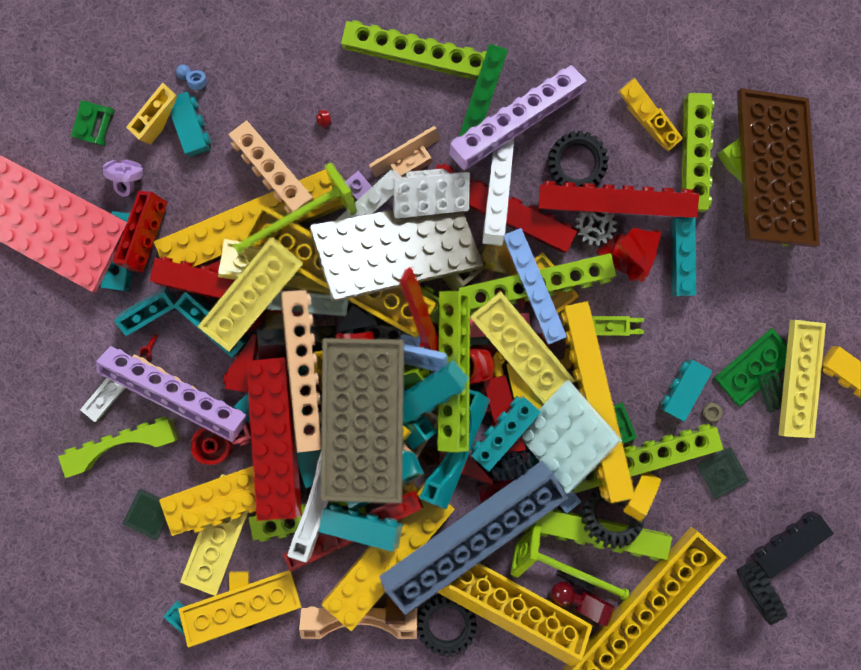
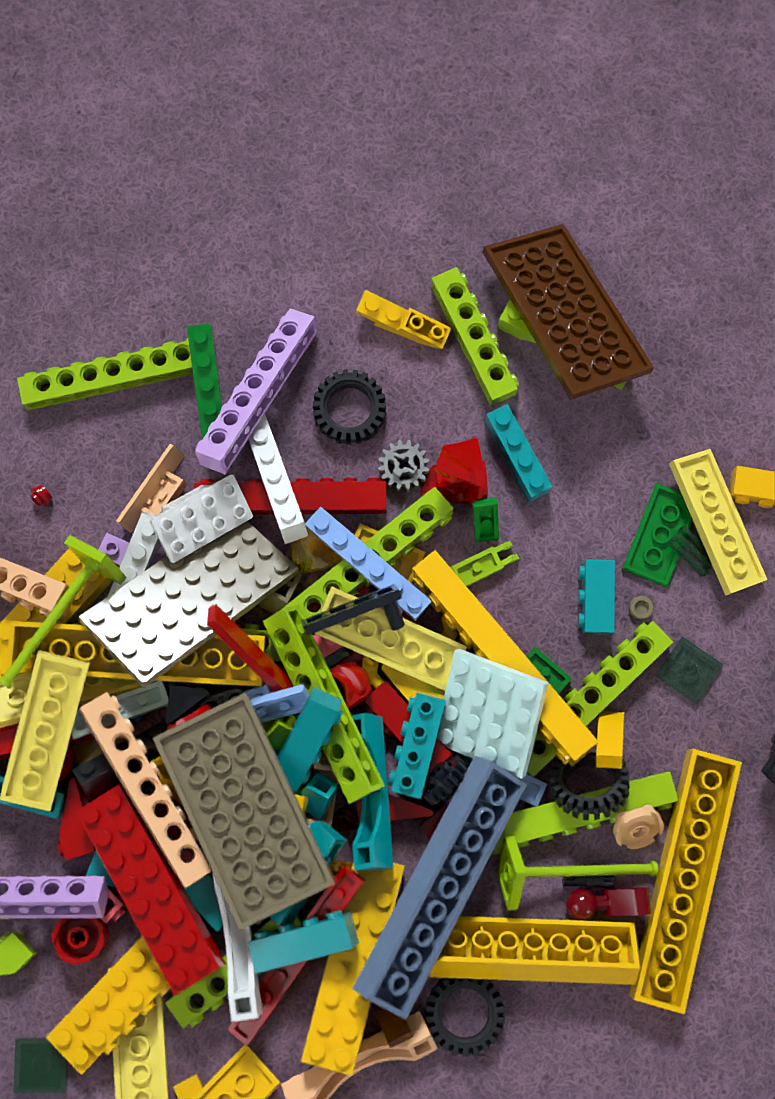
camera: 30 degrees left, 10 degrees down
(535, 319) = (384, 597): none -> black piece
(618, 200) = (412, 426): red brick -> none
(629, 563) = (645, 819): none -> light nougat plate
(635, 295) = (485, 519): none -> green plate

